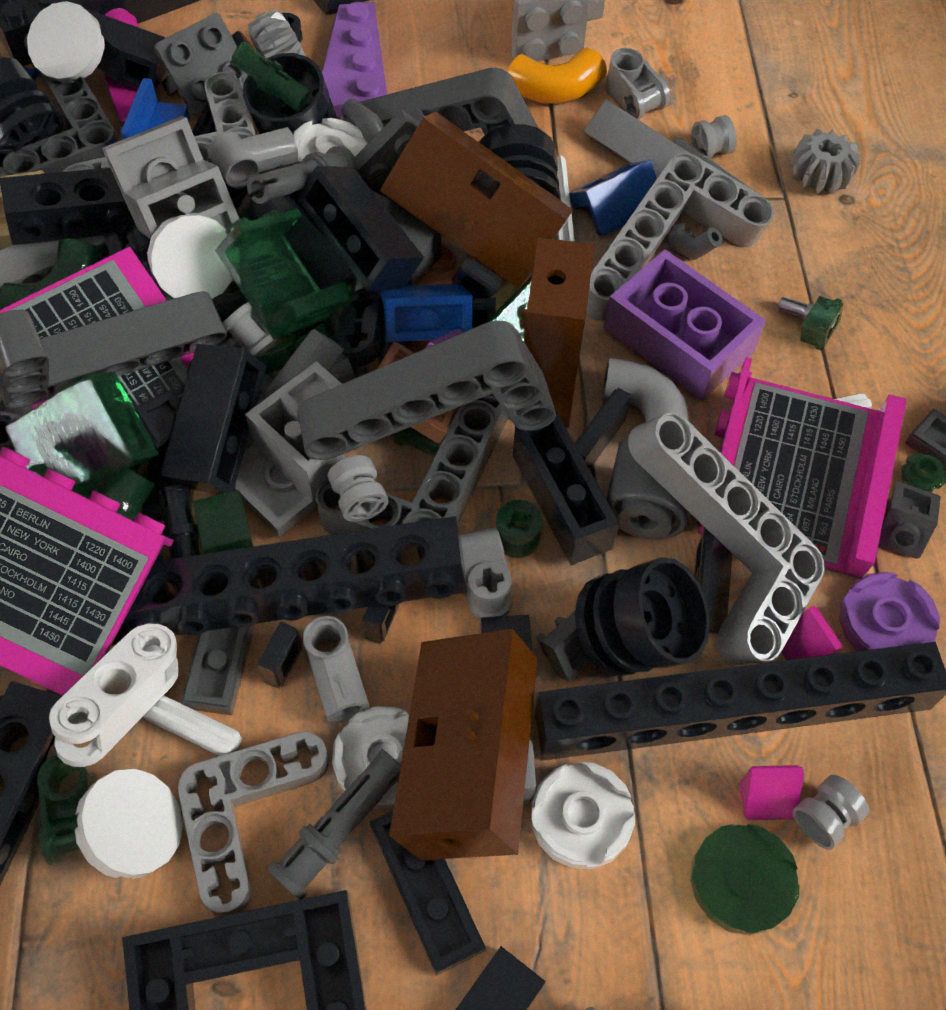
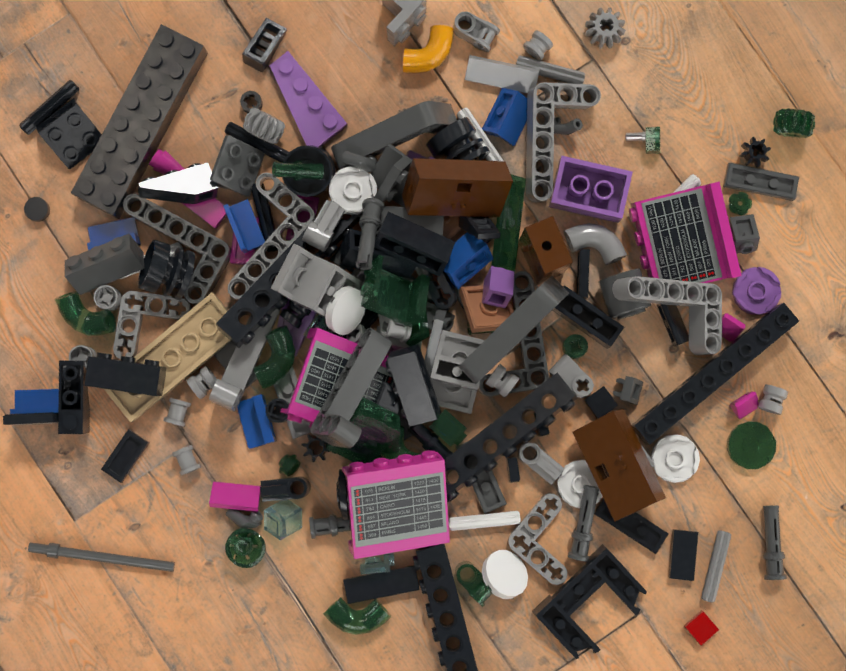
camera: 30 degrees left, 25 degrees up
(65, 42) = (163, 208): white tile -> none
(139, 667) = (465, 517): white piece -> none
(642, 618) = (658, 366): black wheel -> none

